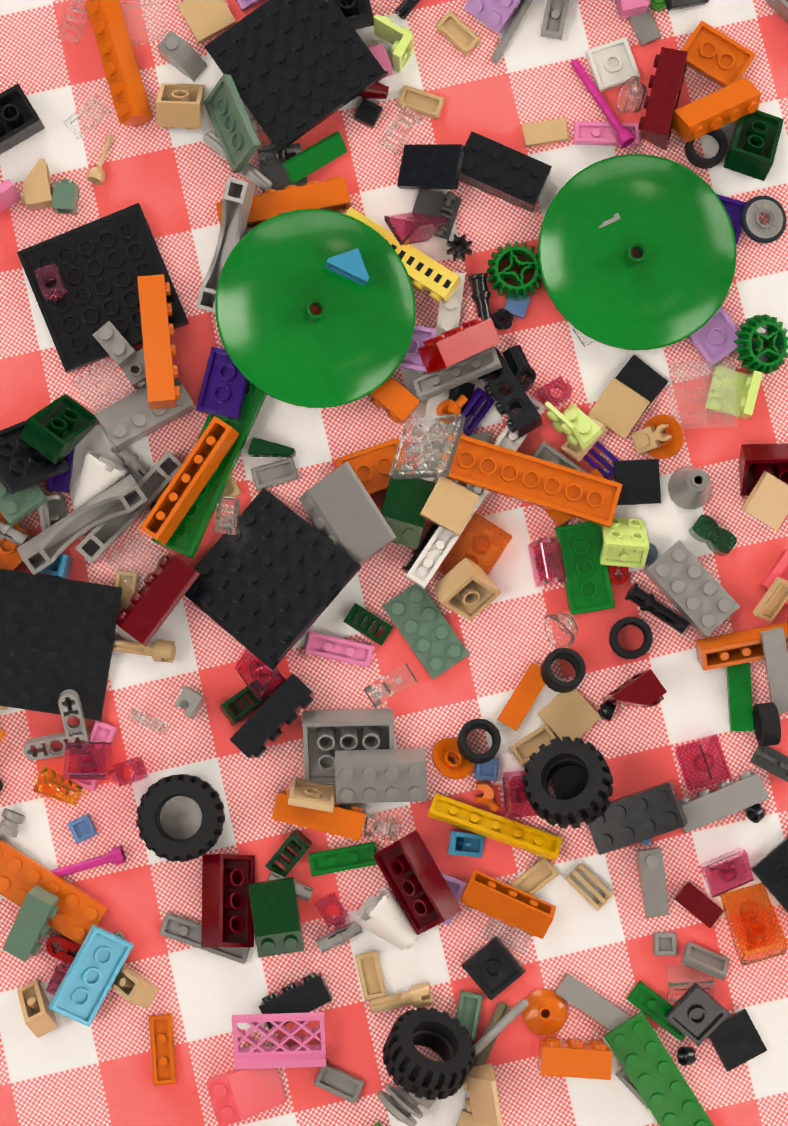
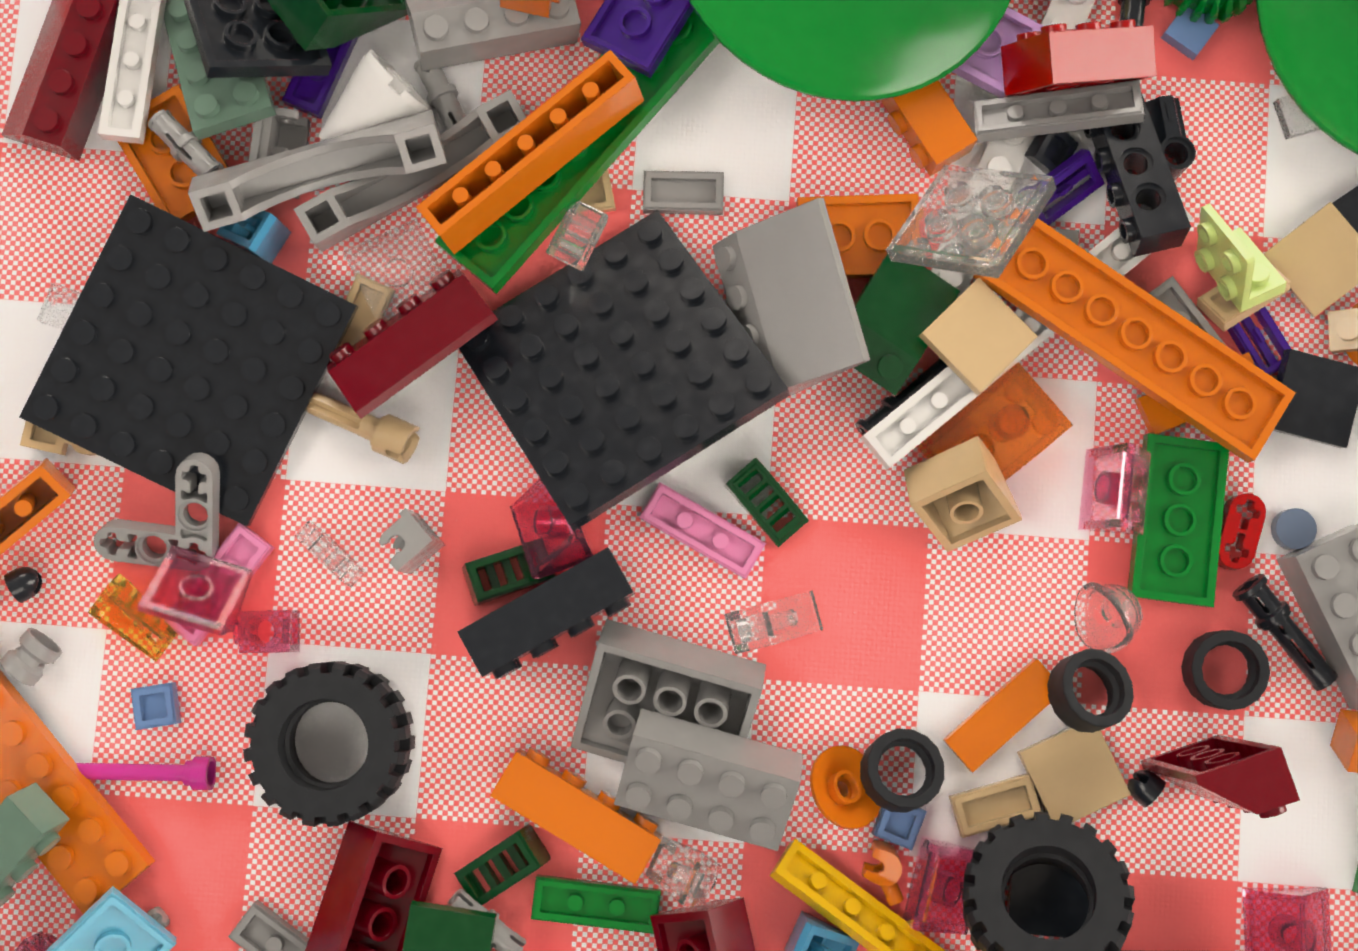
camera: 15 degrees right, 0 degrees up
(61, 954) = (47, 919): red beam -> none
(265, 448) = (683, 144): dark green slope -> none
(311, 795) = (575, 776): tan tile -> none
(426, 630) = (864, 544): sand green plate -> none
(450, 407) = (1029, 163): orange piece -> none
(496, 318) = (1169, 43): black plate -> none
(545, 395) = (1227, 186): clear pink brick -> none
(624, 543) = (1267, 501): yellowish green bracket -> none

